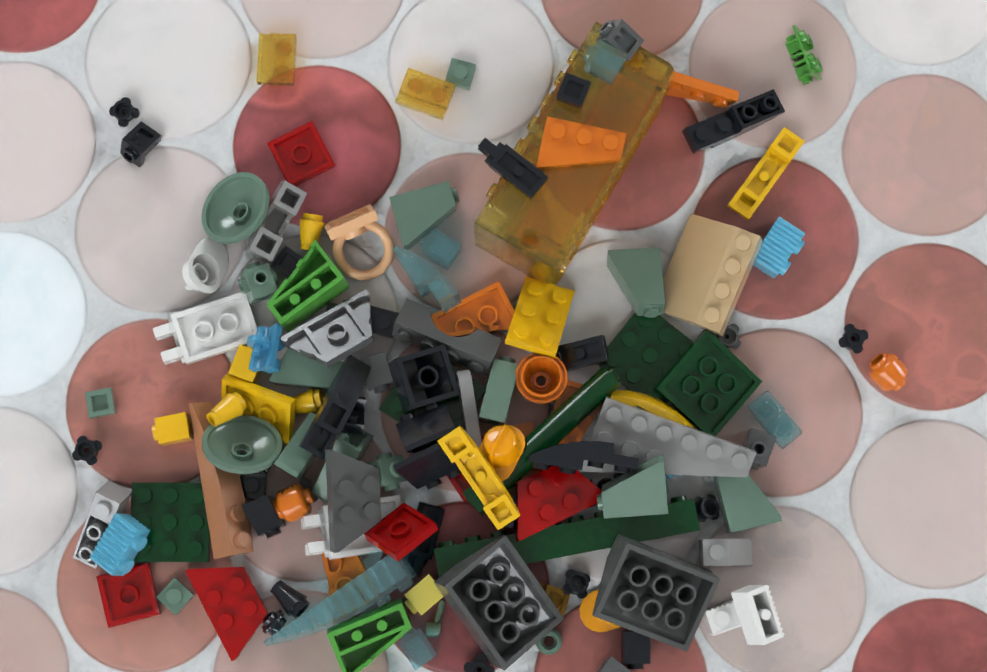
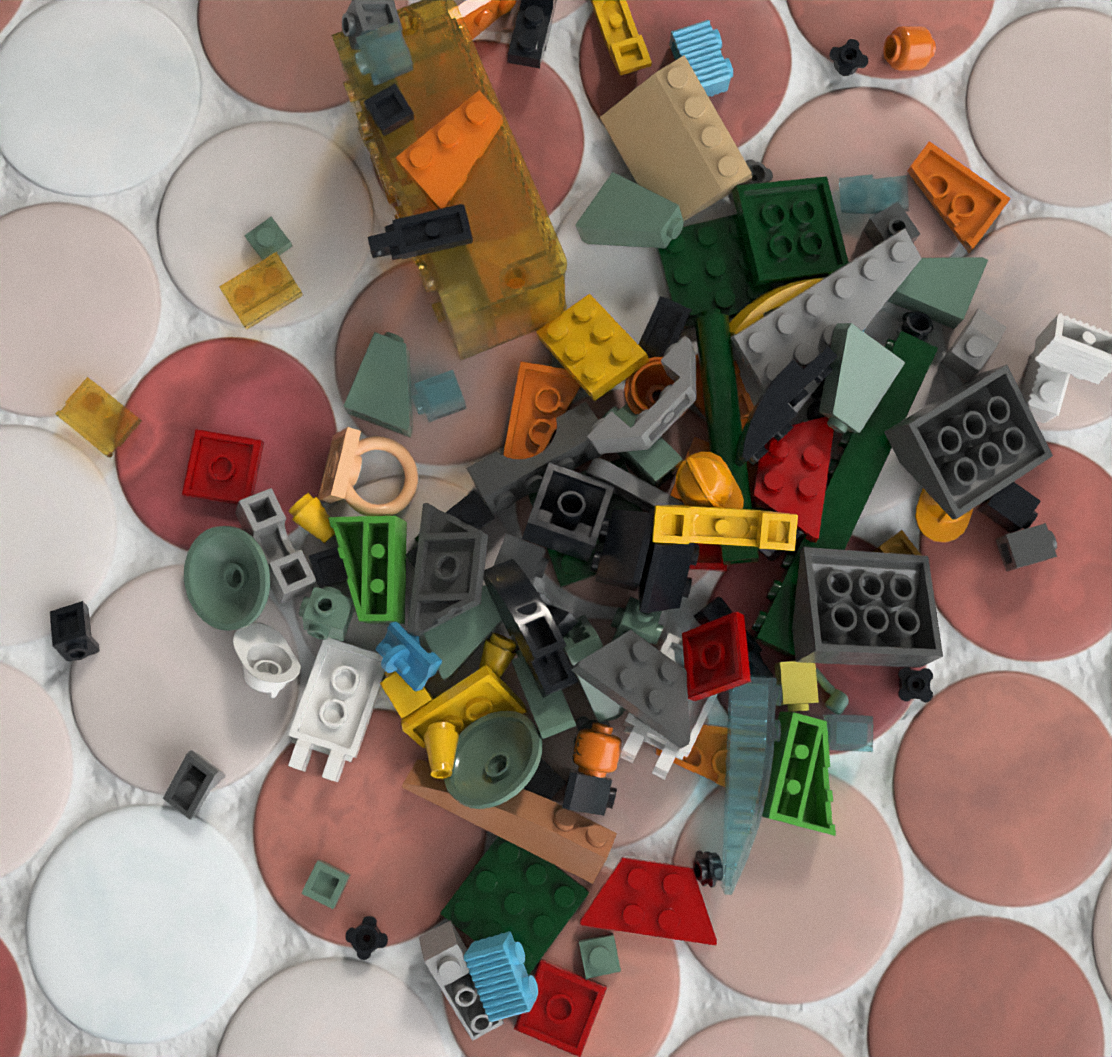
camera: 50 degrees left, 0 degrees up
(102, 281) = (192, 784): none -> dark grey slope
(119, 107) = (17, 616): black plate -> none
(173, 429) = (415, 825): yellow brick -> none
(291, 600) = (695, 832): black cone -> none
(428, 279) = (461, 431): clear light blue slope -> none
(510, 387) = (614, 435): none -> light grey slope
(549, 650) = (947, 589): sand green plate -> none
(583, 582) = (901, 509): black plate -> none
(815, 472) = (957, 194): none -> orange wing

